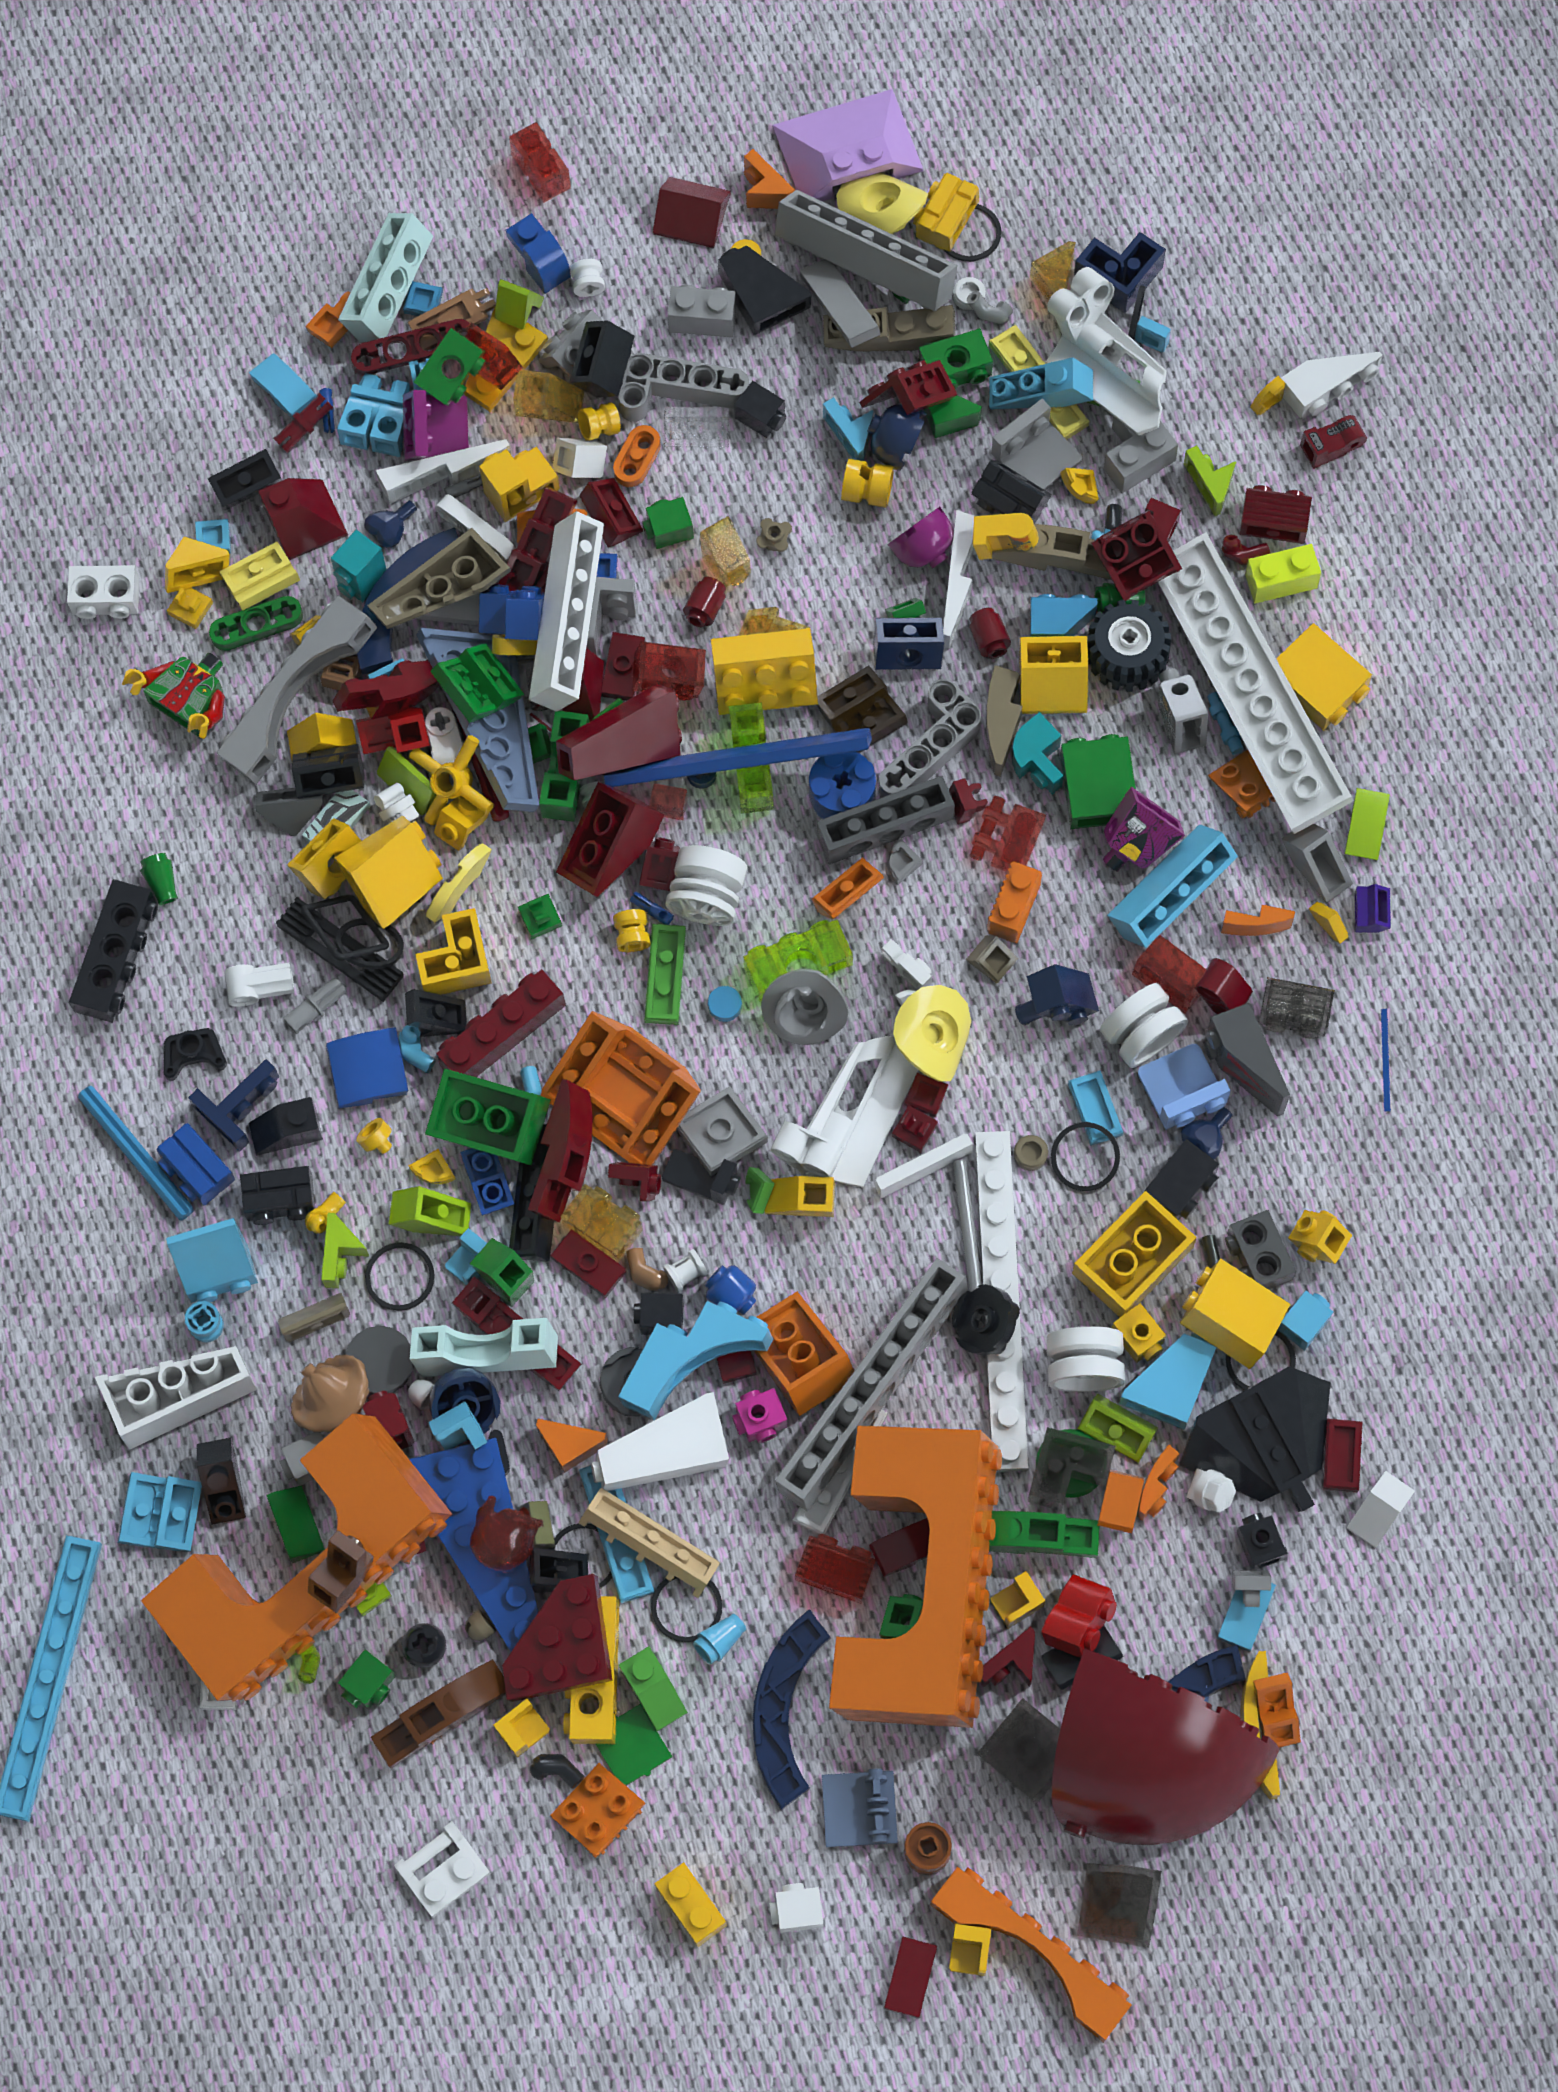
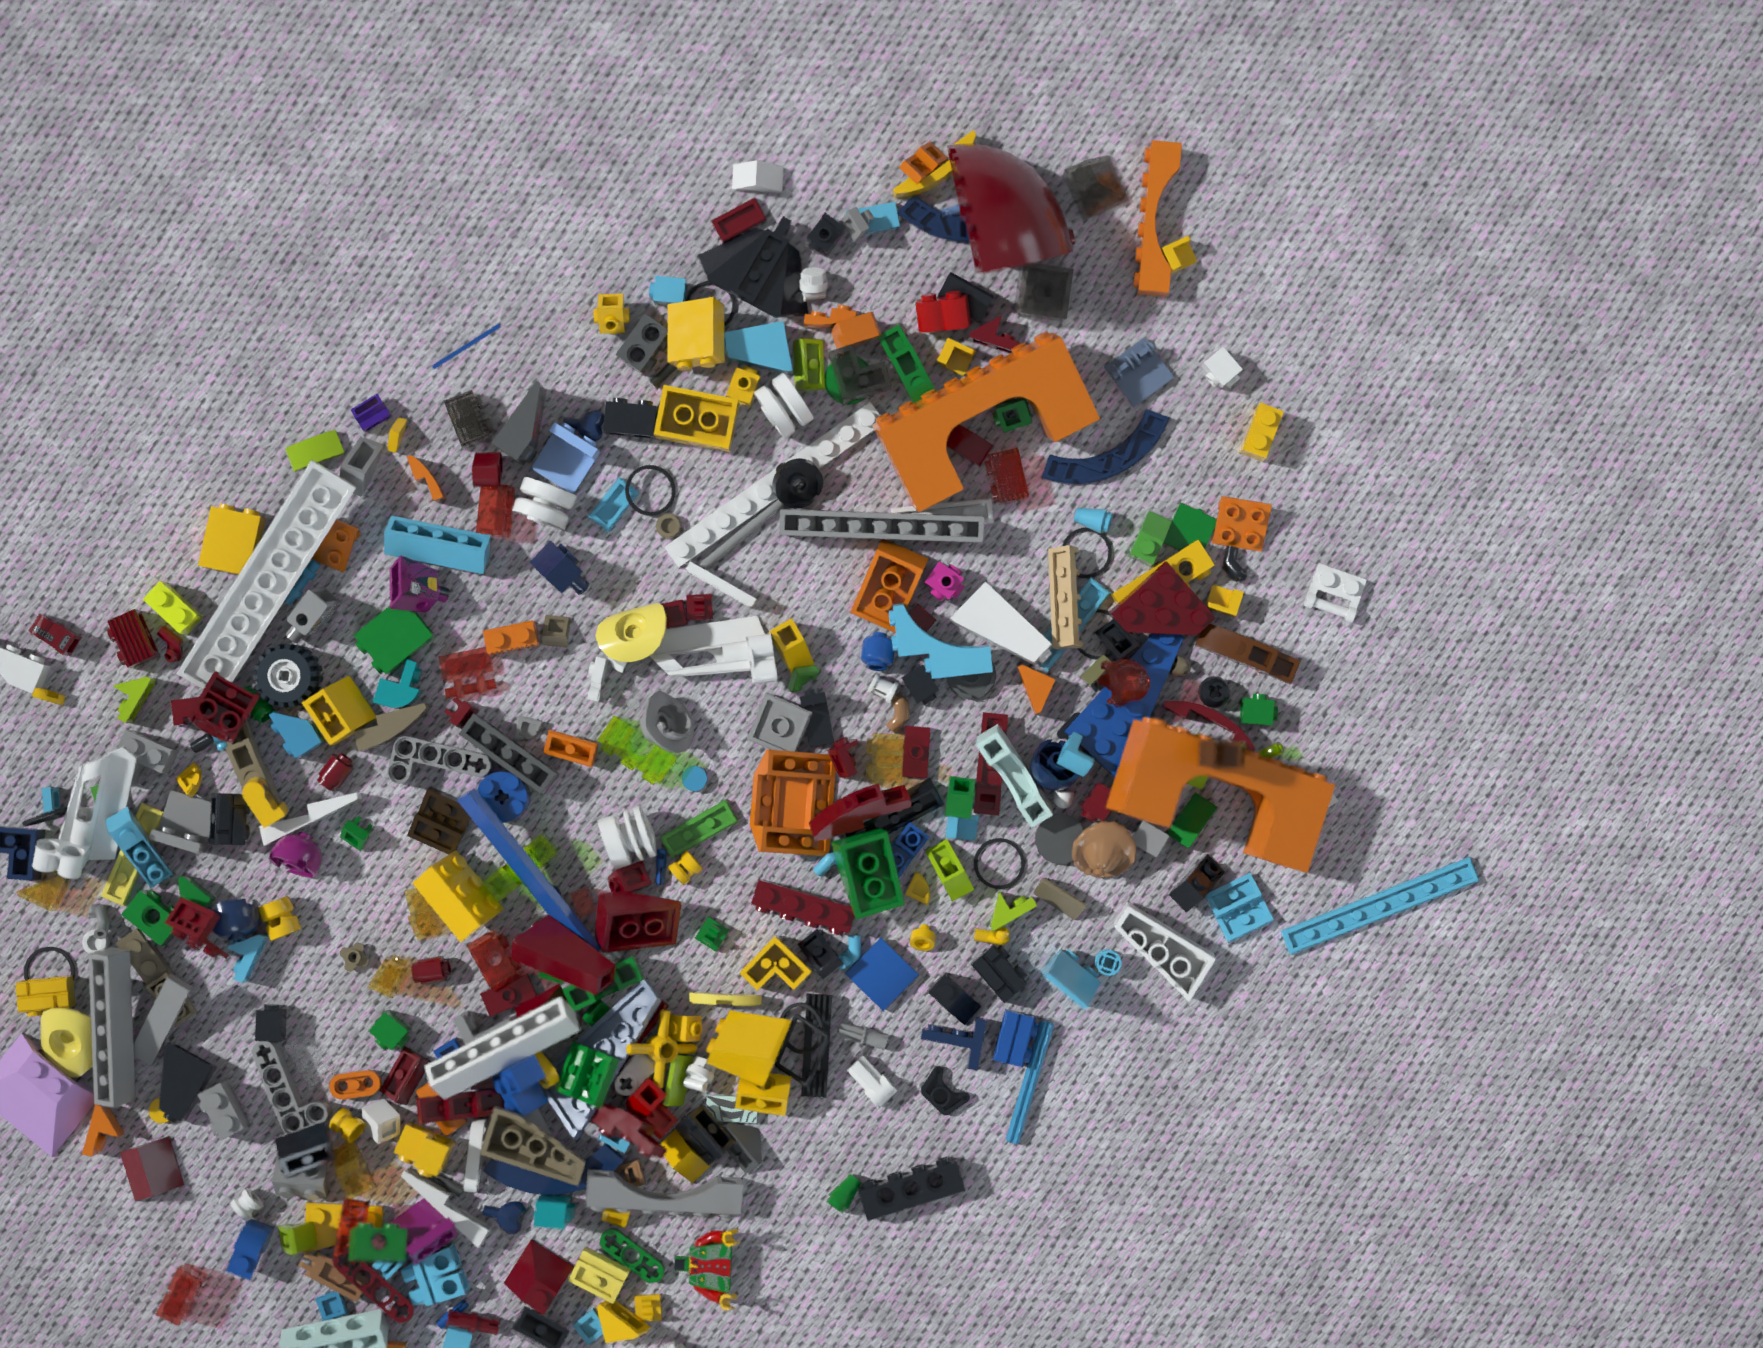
camera: 125 degrees left, 15 degrees up
(349, 1638) = (1182, 709): none -> dark red slope
(908, 643) = (377, 817): dark blue brick -> none
(910, 1977) = (1216, 280): dark red tile -> none
(927, 1848) = (1138, 315): dark orange wheel -> none

